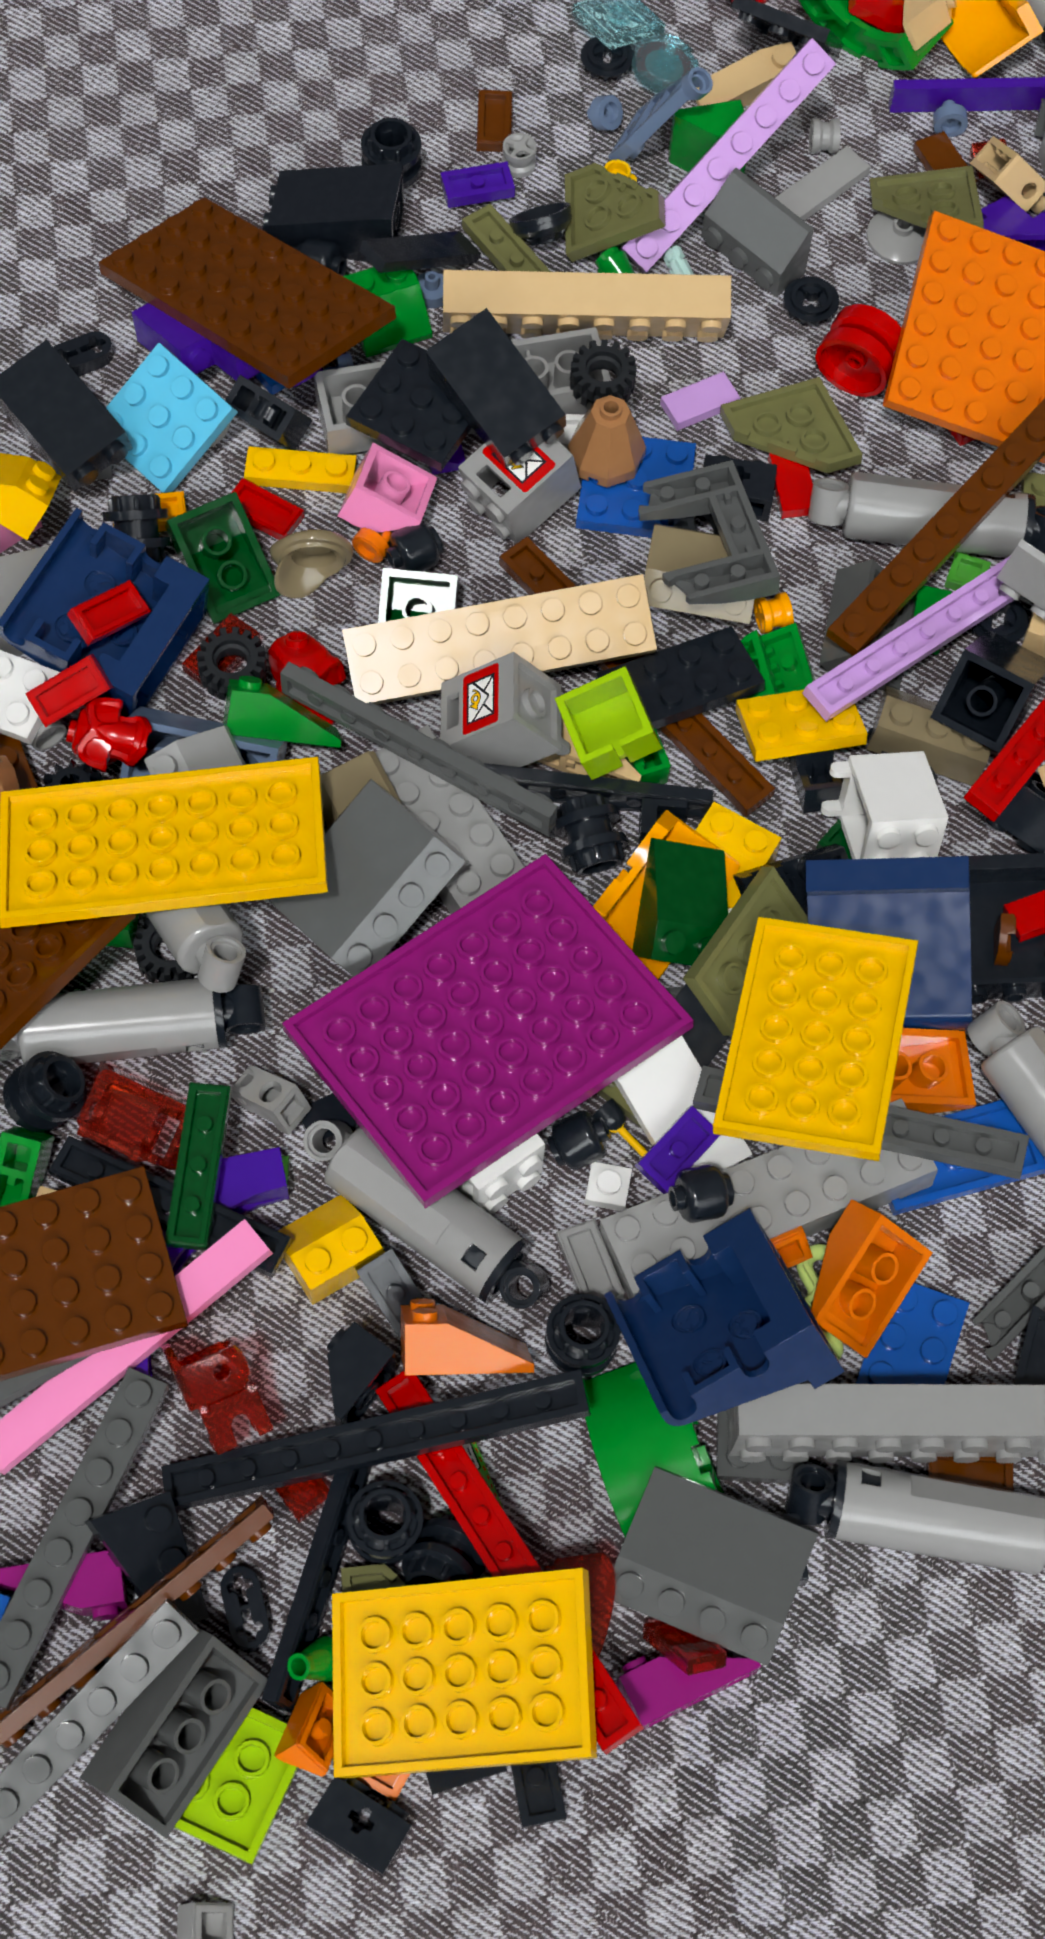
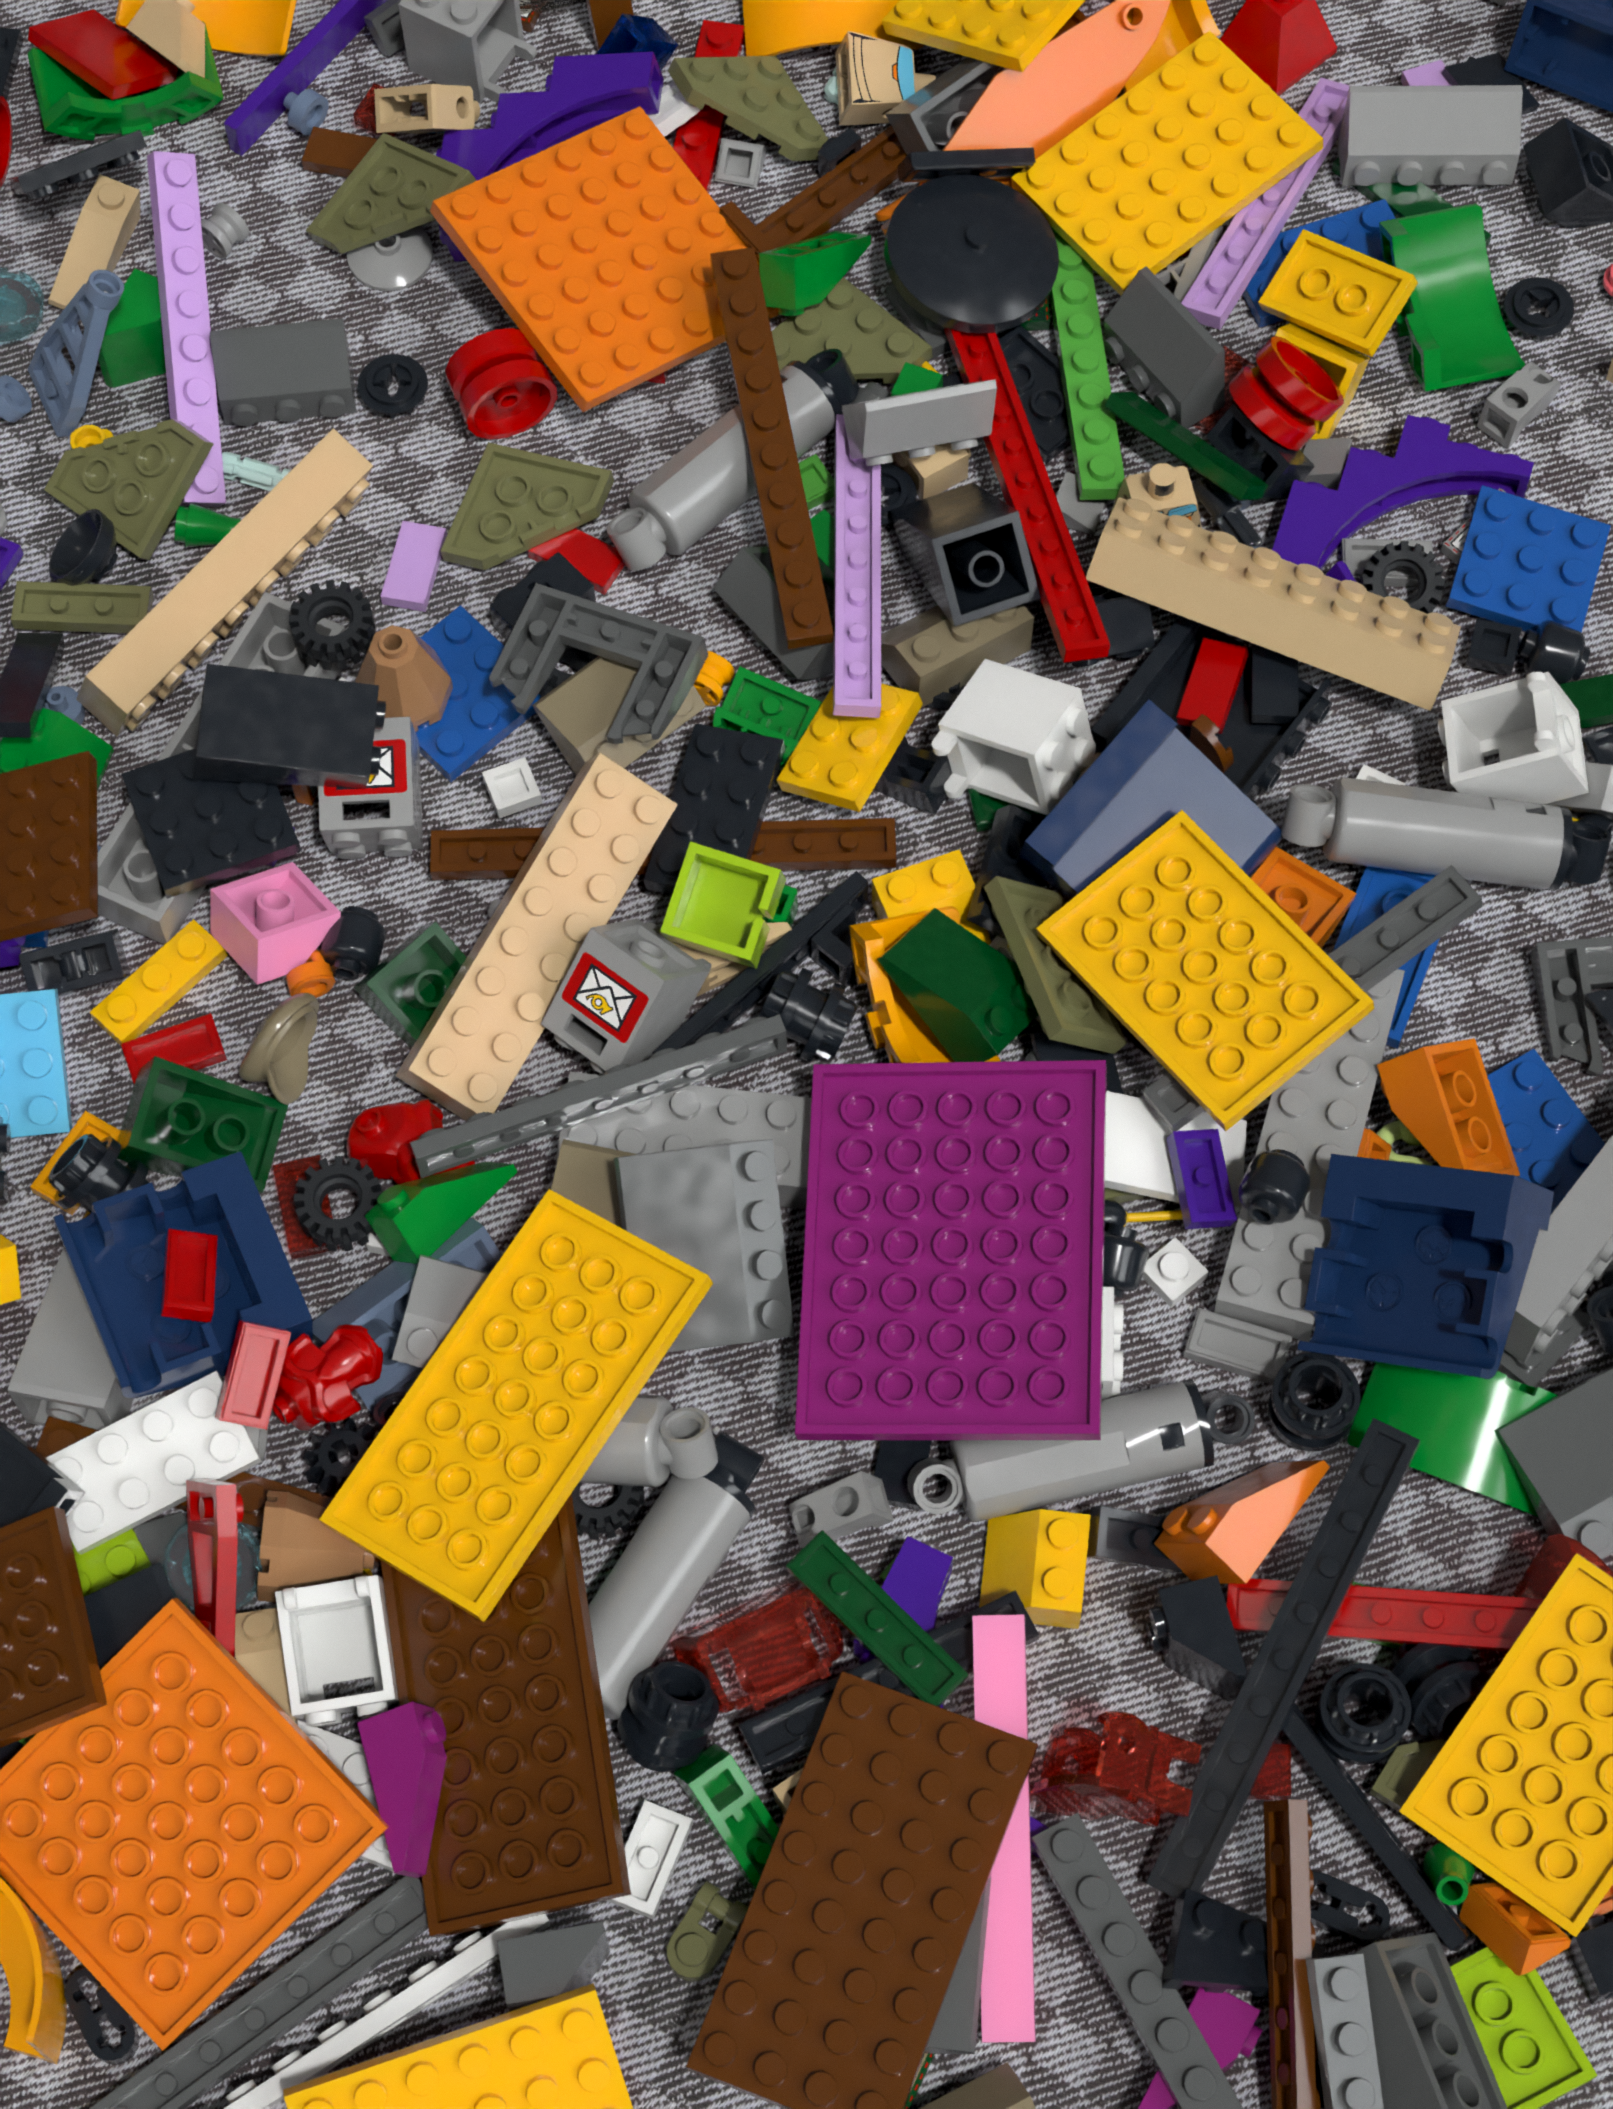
camera: 45 degrees left, 0 degrees up
(598, 560) = (512, 787): none -> white plate
(824, 183) = (272, 272): light grey tile -> none

